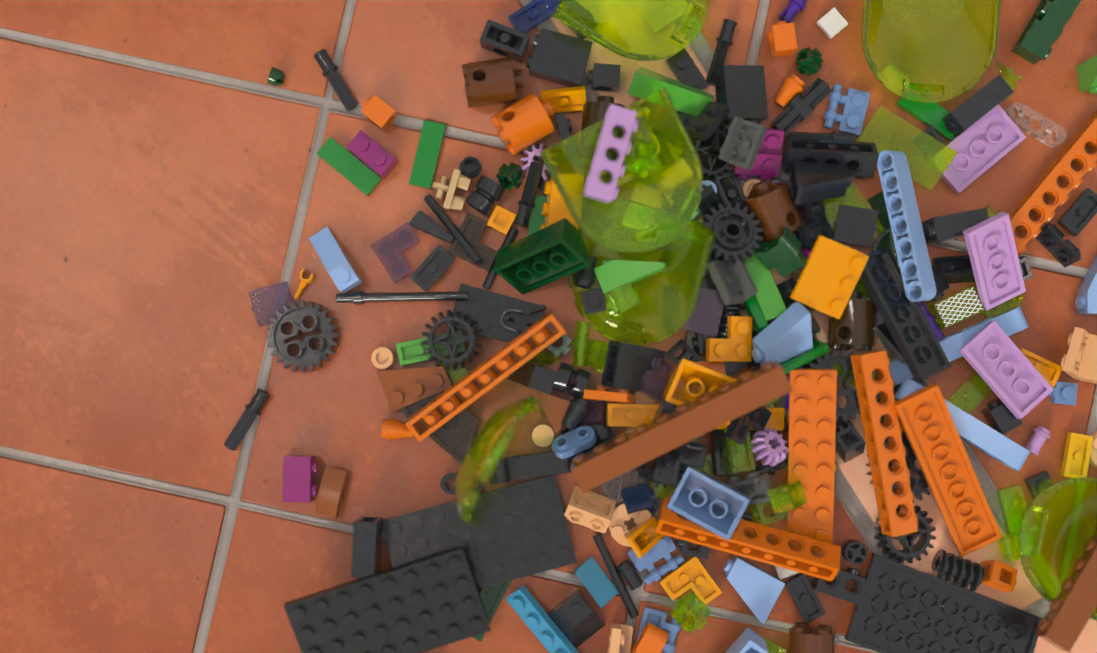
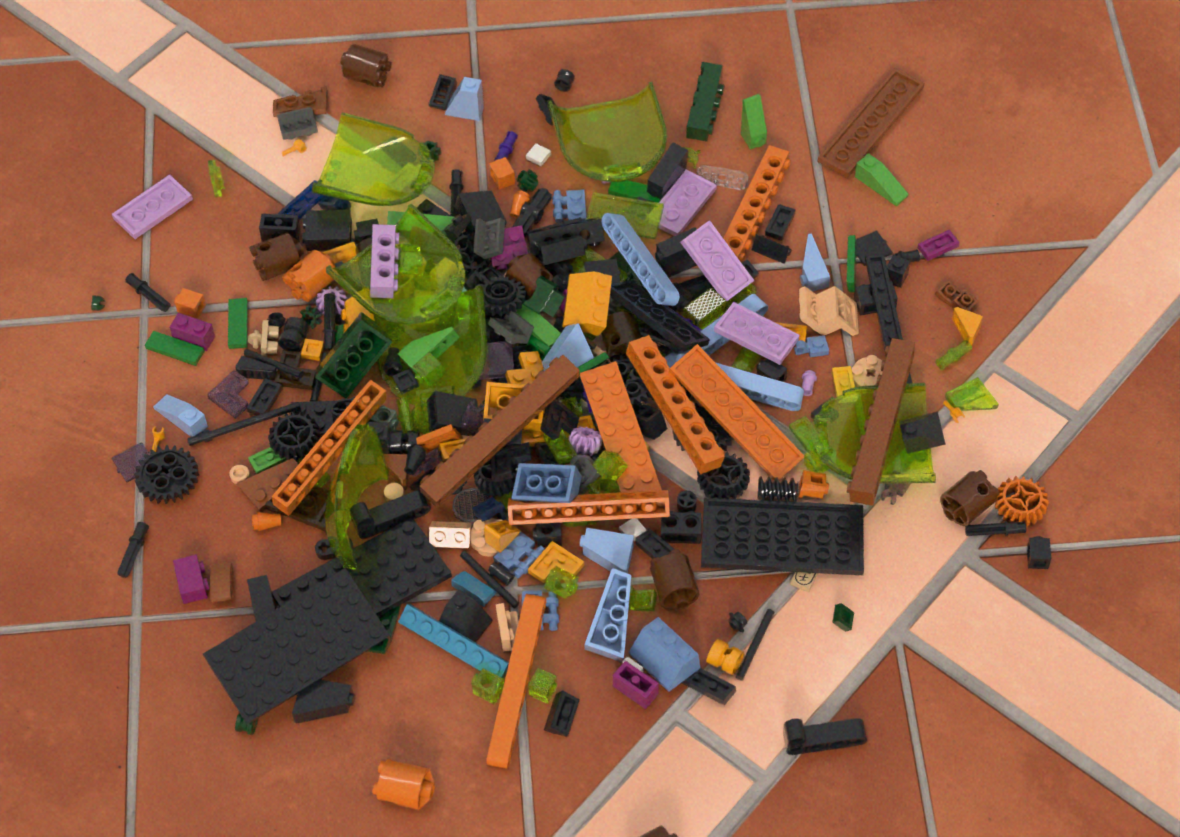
camera: 10 degrees left, 30 degrees down
(574, 442) = (412, 484): medium blue plate -> none

